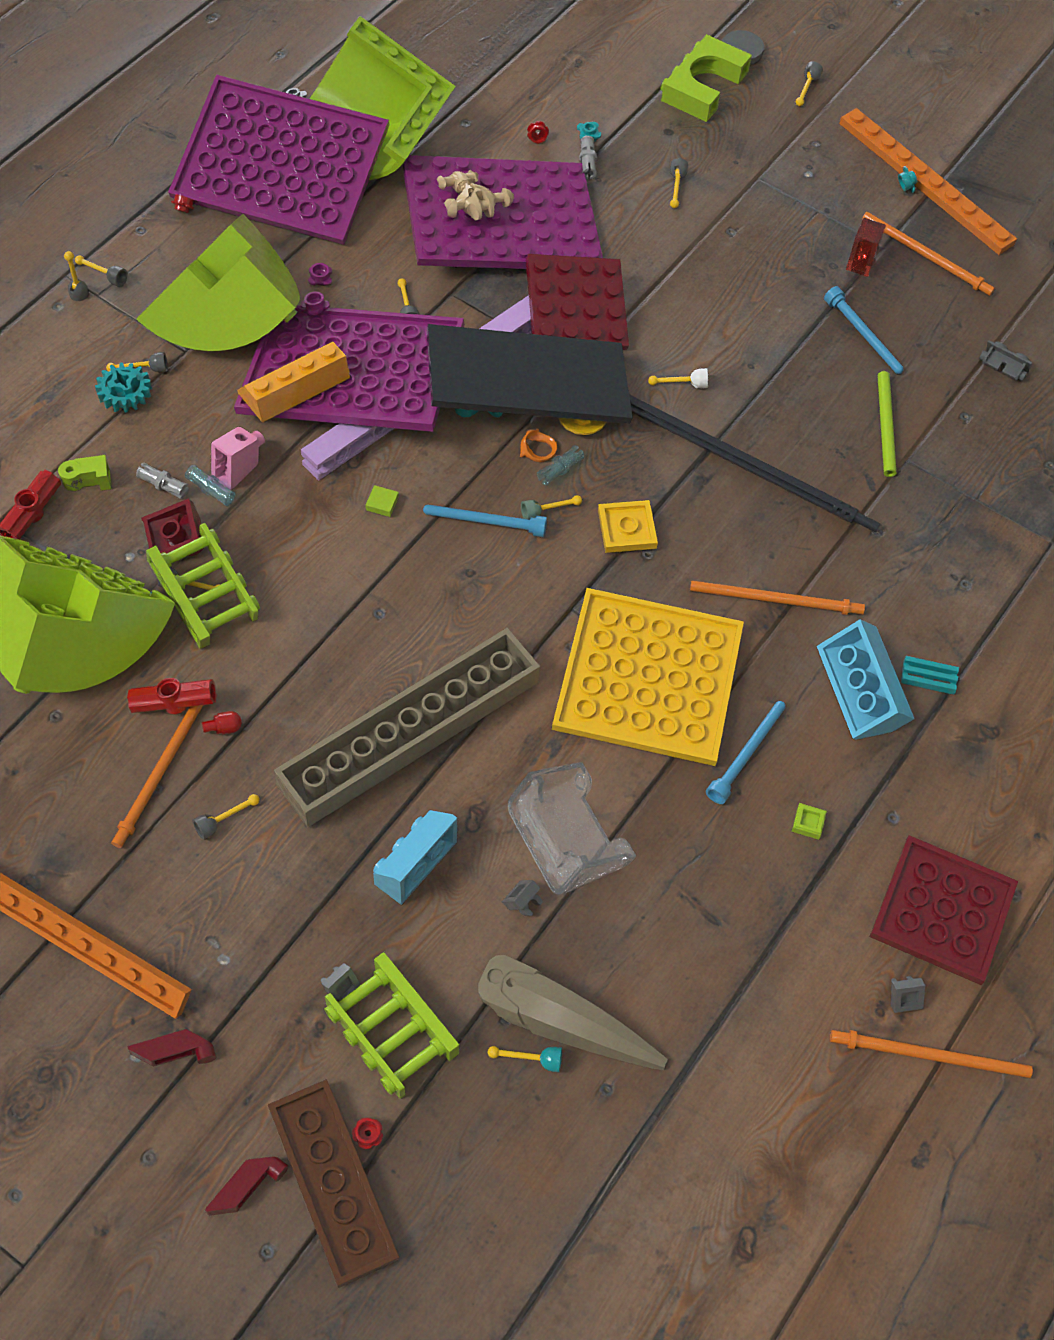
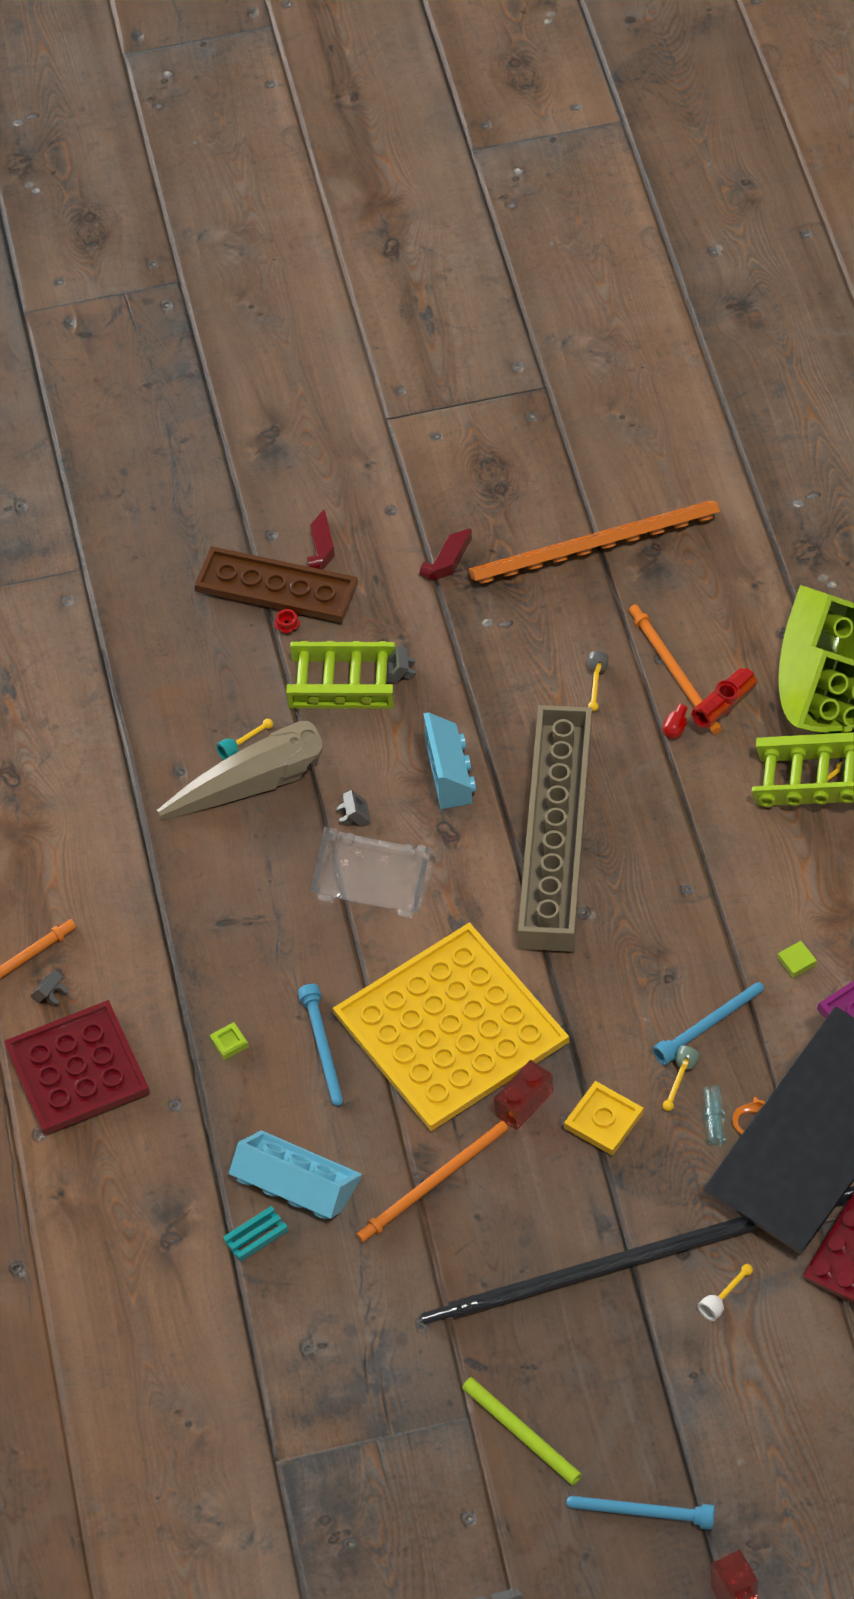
camera: 140 degrees right, 5 degrees down
(661, 581) = (523, 1095): none -> clear red brick

